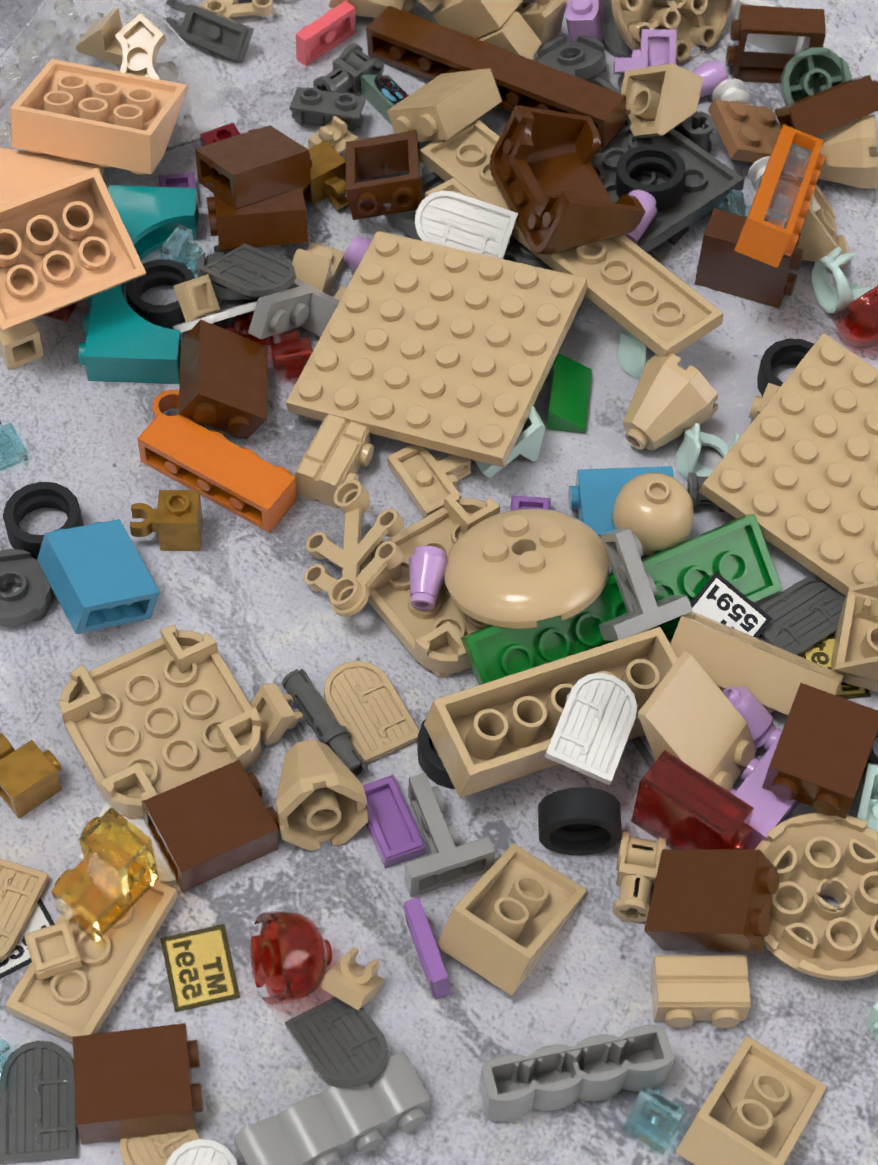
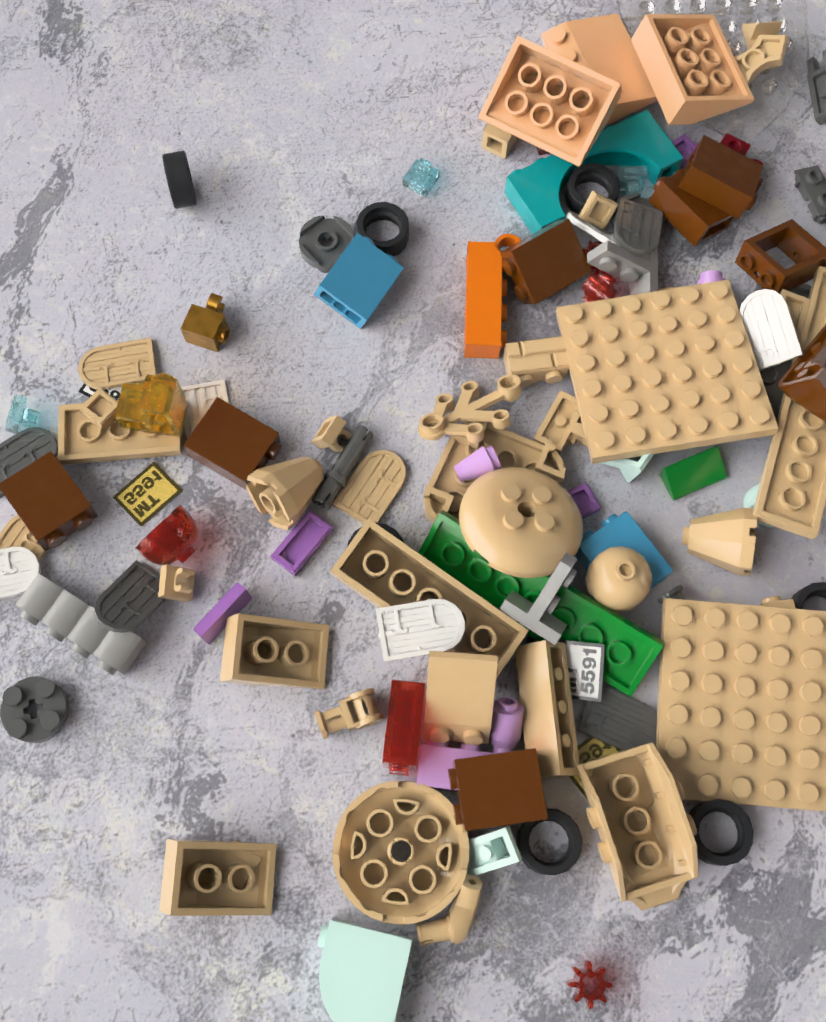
camera: 60 degrees right, 15 degrees up
(158, 719) = (287, 375): tan plate -> none
(175, 519) = (428, 298): pearl gold brick -> none
(318, 266) = (679, 266): tan slope -> none
(327, 176) = (760, 218): pearl gold brick -> none
(335, 133) = (795, 210): tan tile -> none
(448, 859) = (301, 580): light grey bracket -> none
(563, 1073) = (187, 756): light grey brick -> none
(579, 821) = (357, 657): black tyre -> none
(654, 1119) = (182, 814): clear light blue tile -> none
(689, 450) = (712, 573): light aqua piece -> none
(700, 989) = (288, 797): tan brick -> none
(712, 900) = (345, 773): reddish brown brick -> none

